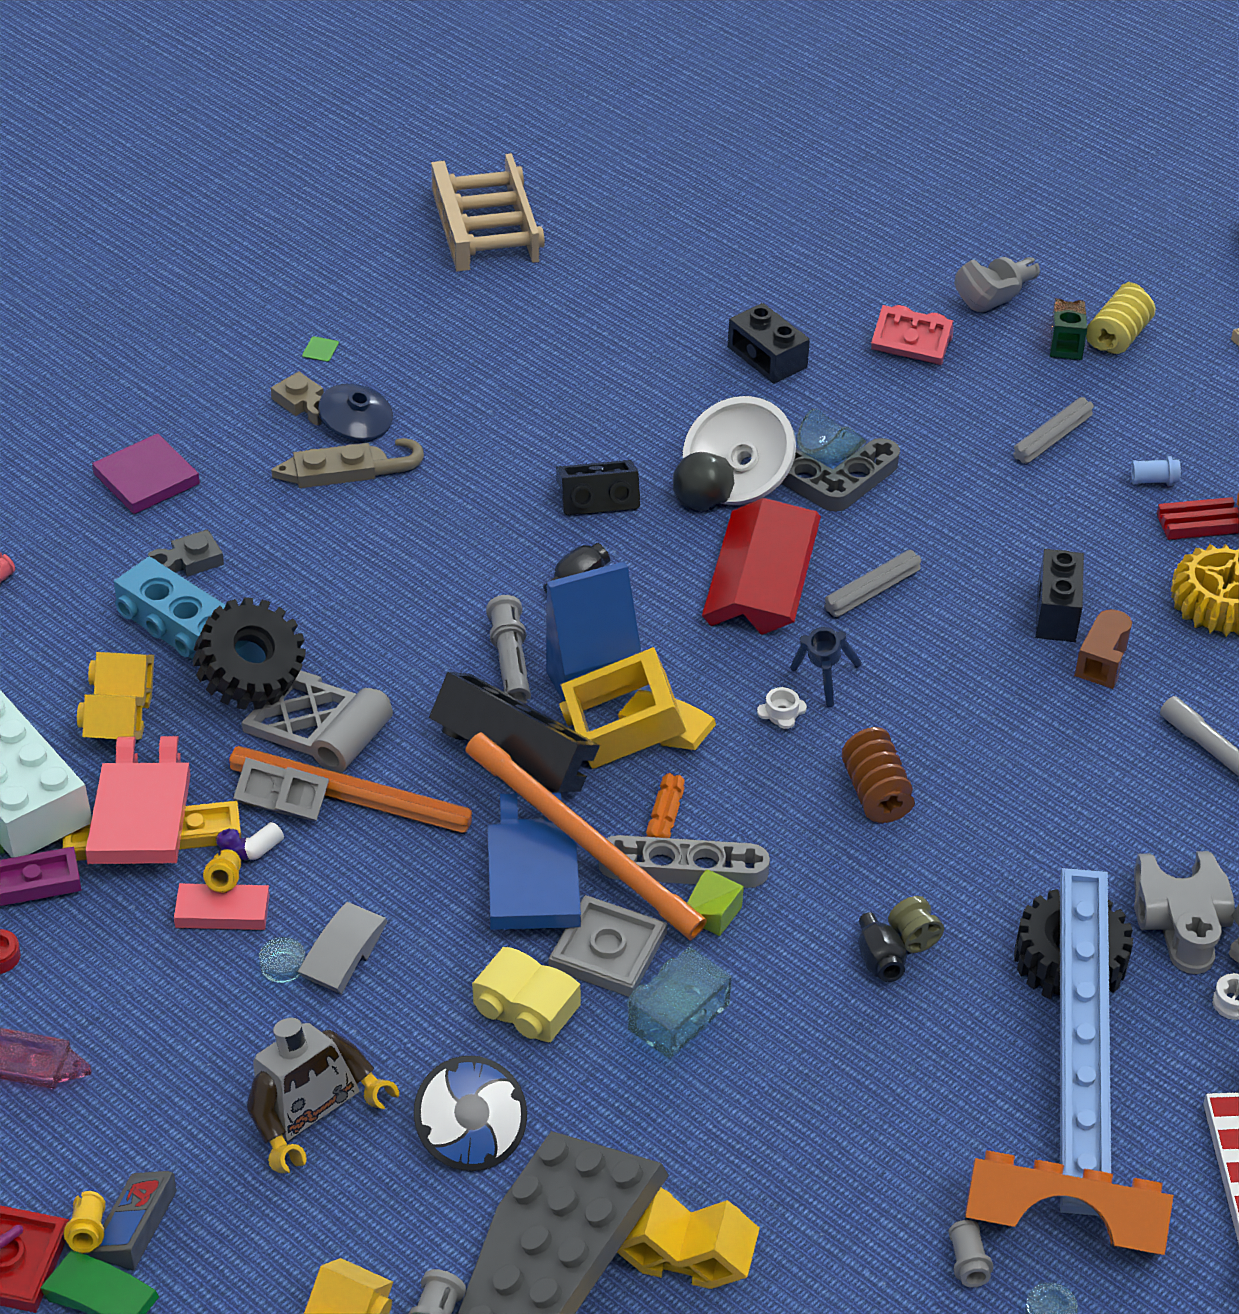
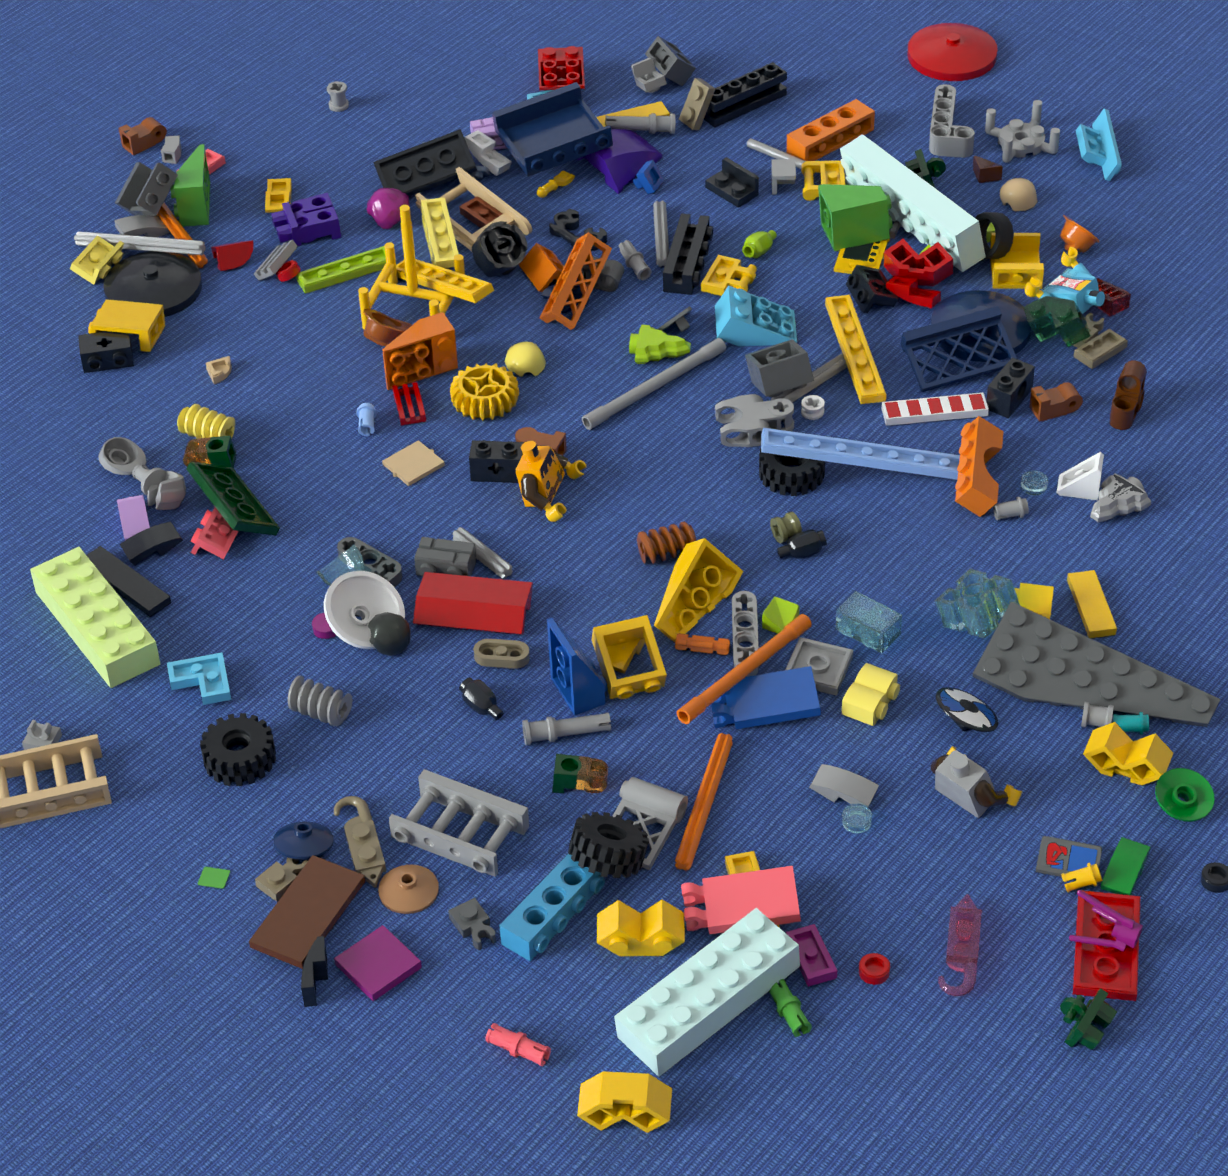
camera: 90 degrees left, 0 degrees up
(139, 412) = (314, 969): none -> black slope
(222, 871) = (792, 850): yellow pin -> none
(236, 412) = (307, 910): none -> reddish brown tile
(239, 908) = (817, 854): coral tile -> none
(252, 847) = (764, 846): arm -> none
(263, 505) = (408, 889): none -> medium nougat dish
(281, 789) = (714, 831): light grey slope -> none
(366, 566) = (464, 799): none -> light grey fence
(414, 655) = (579, 773): none -> leg
(511, 354) = (239, 764): none -> black tyre
(530, 737) = (657, 708): black brick -> none
(563, 210) = (41, 735): none -> light grey tile
(583, 416) = (319, 702): none -> light grey piece
(599, 487) = (388, 691): black bracket -> none
(650, 330) = (205, 671): none -> medium azure plate
(661, 592) = (501, 653): none -> dark tan plate
(701, 1145) = (976, 603): none -> clear light blue brick
(753, 236) = (95, 617): none -> yellowish green brick
(768, 343) = (227, 606): black brick -> none
(782, 707) = (606, 592): white plate -> none
(784, 807) = (695, 586): none -> yellow wedge
(824, 651) = (581, 551): dark blue plant -> none
(828, 267) = (129, 583): none -> black tile
(849, 539) = (445, 557): none -> dark grey brick
(897, 282) = (156, 538): none -> black slope
(939, 265) = (133, 515): none -> lavender slope
(969, 340) = (233, 498): none -> dark green tile
(1021, 633) = (540, 477): none -> torso
(1053, 430) = (320, 466): light grey axle -> none
(1058, 251) = (121, 456): none -> light grey hat
(1071, 523) = (413, 463): none -> tan piece

